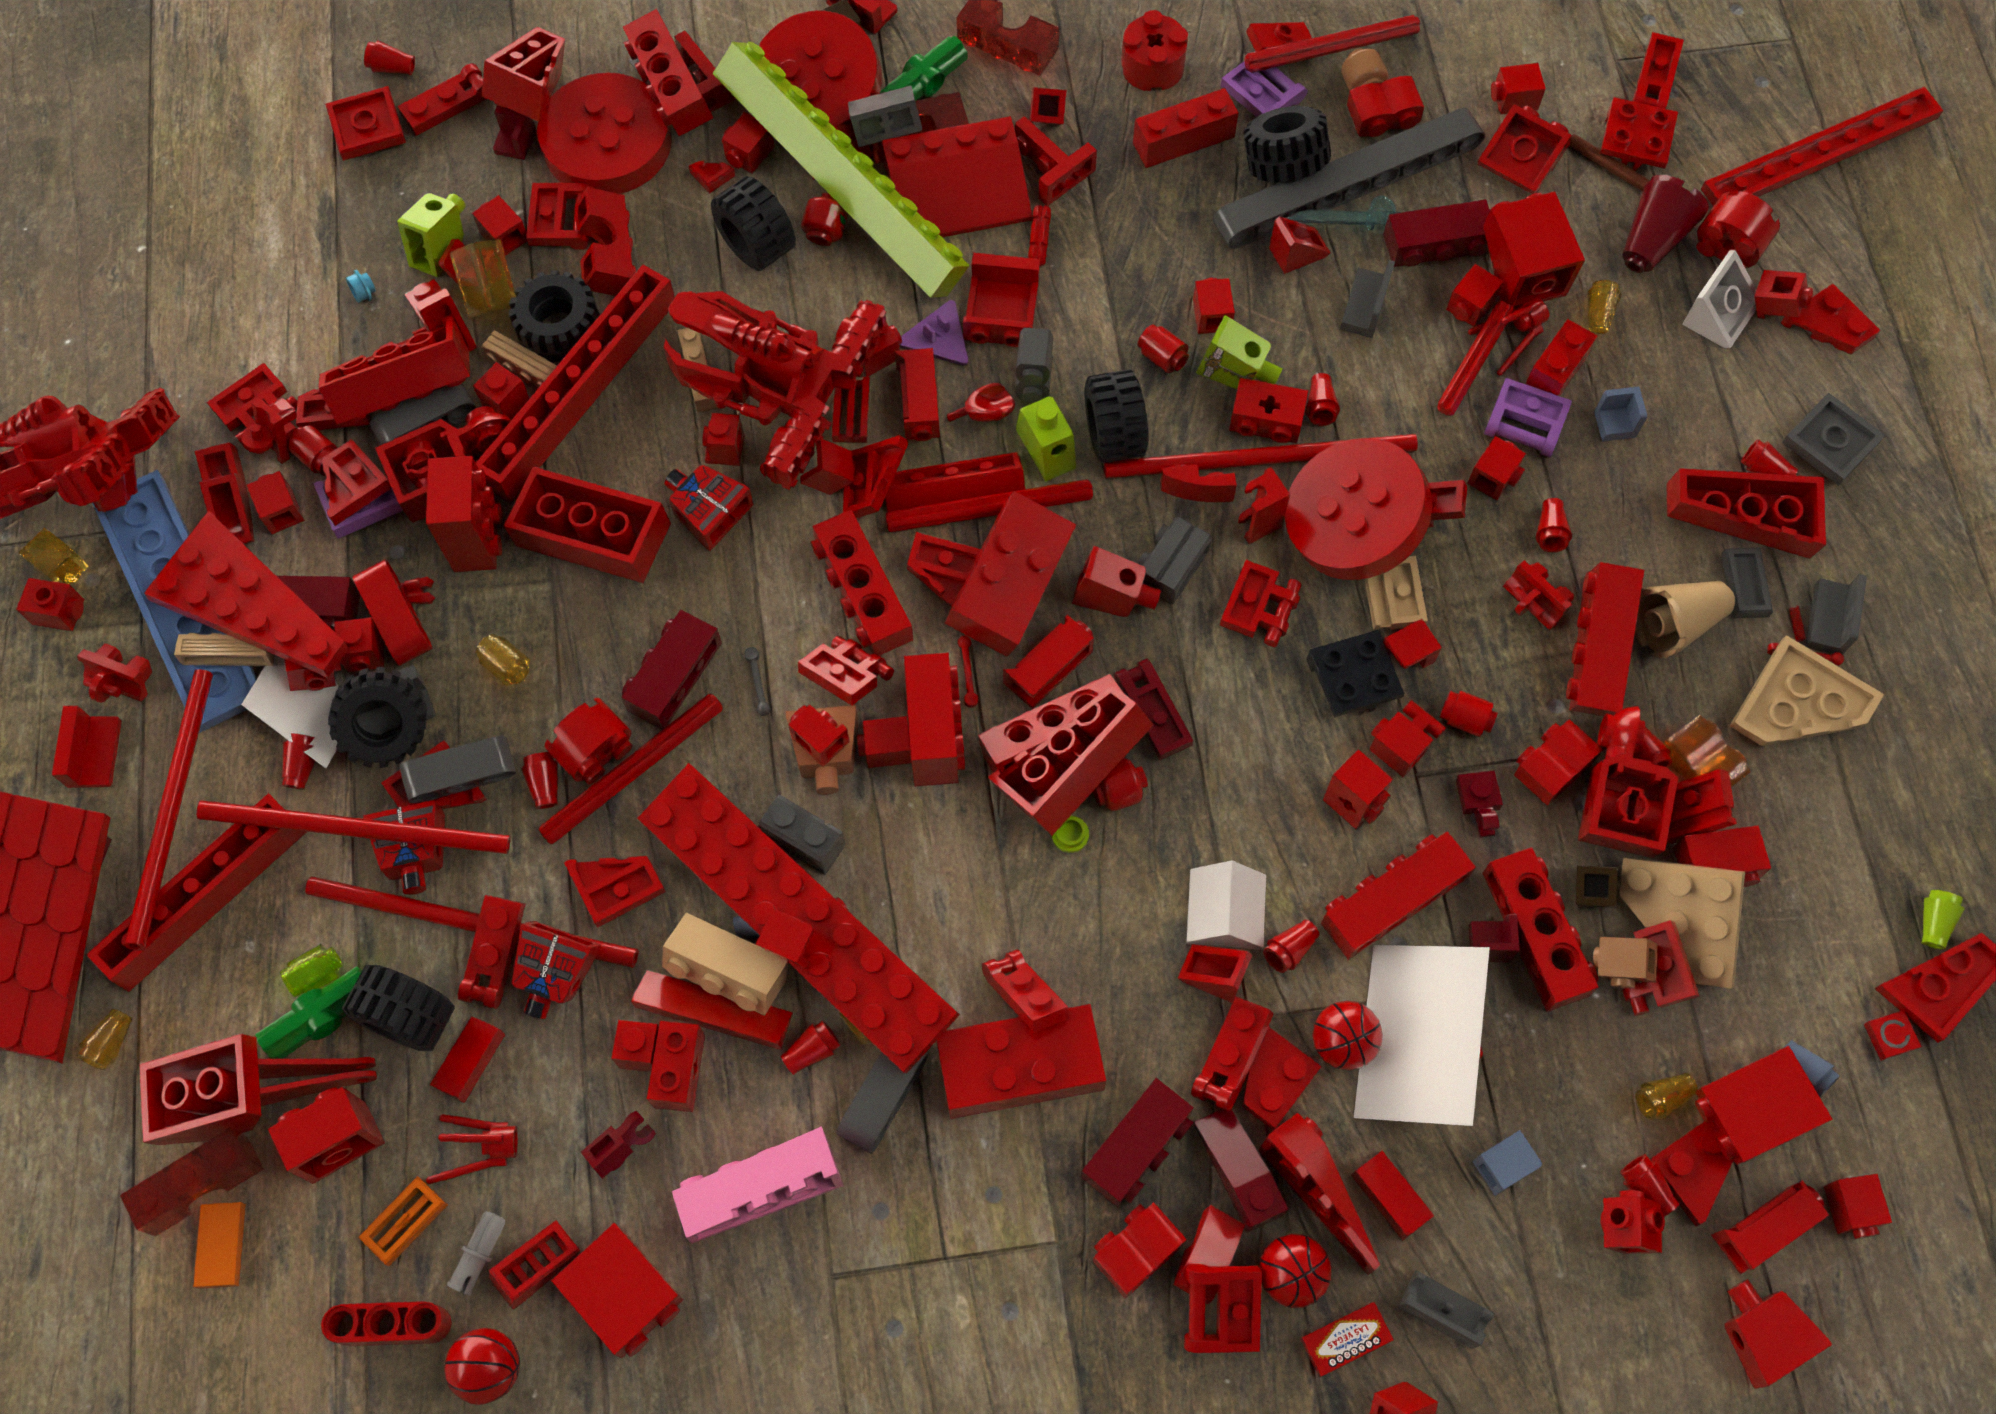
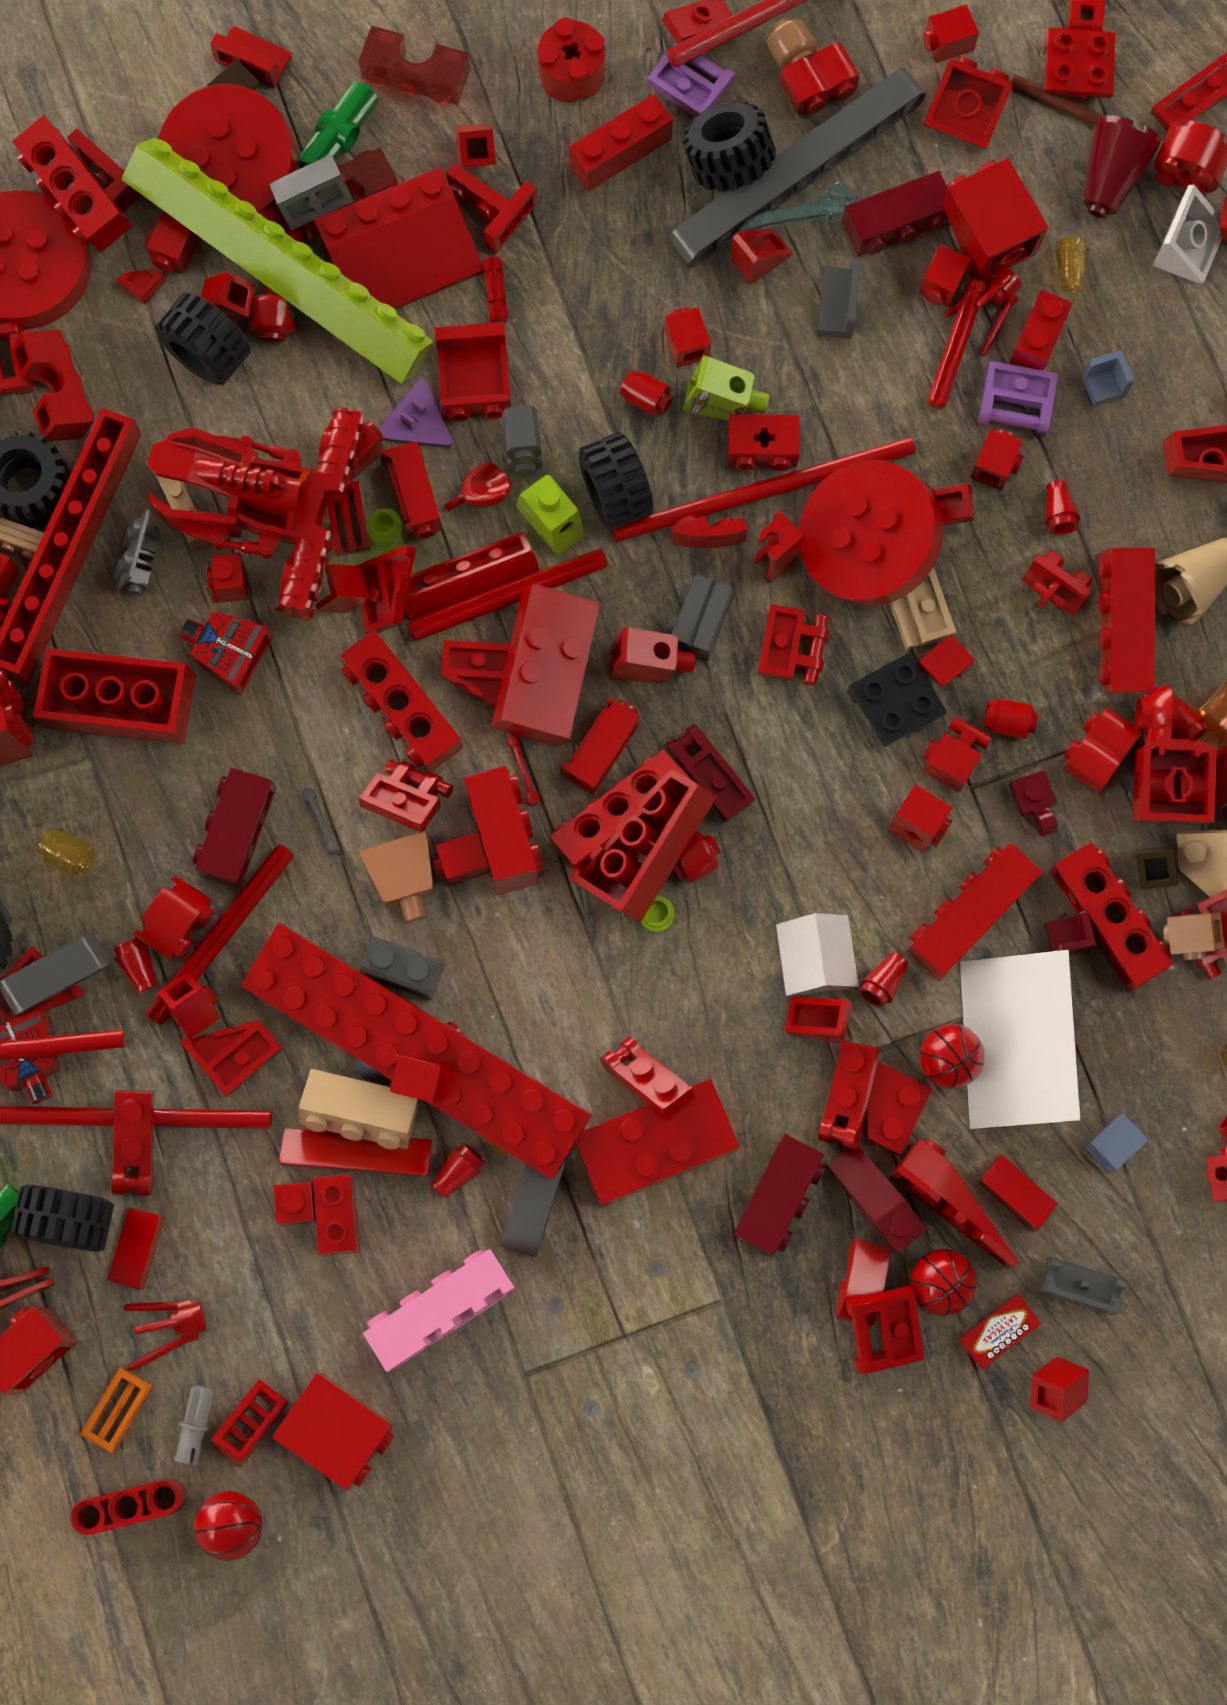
camera: 15 degrees left, 10 degrees up
(550, 965) = (193, 1145): red torso -> none
(583, 826) = (190, 1004): none -> red brick
(613, 1145) = (295, 1301): dark red plate -> none
(642, 403) = (142, 543): none -> dark grey hinge
(790, 191) = (229, 295): none -> red brick
(818, 733) = (396, 869): red brick -> none
(883, 420) = (385, 530): none -> clear neon green brick
(1138, 1249) = (798, 1292): red brick -> none
(1322, 401) = (814, 419): red cone -> none

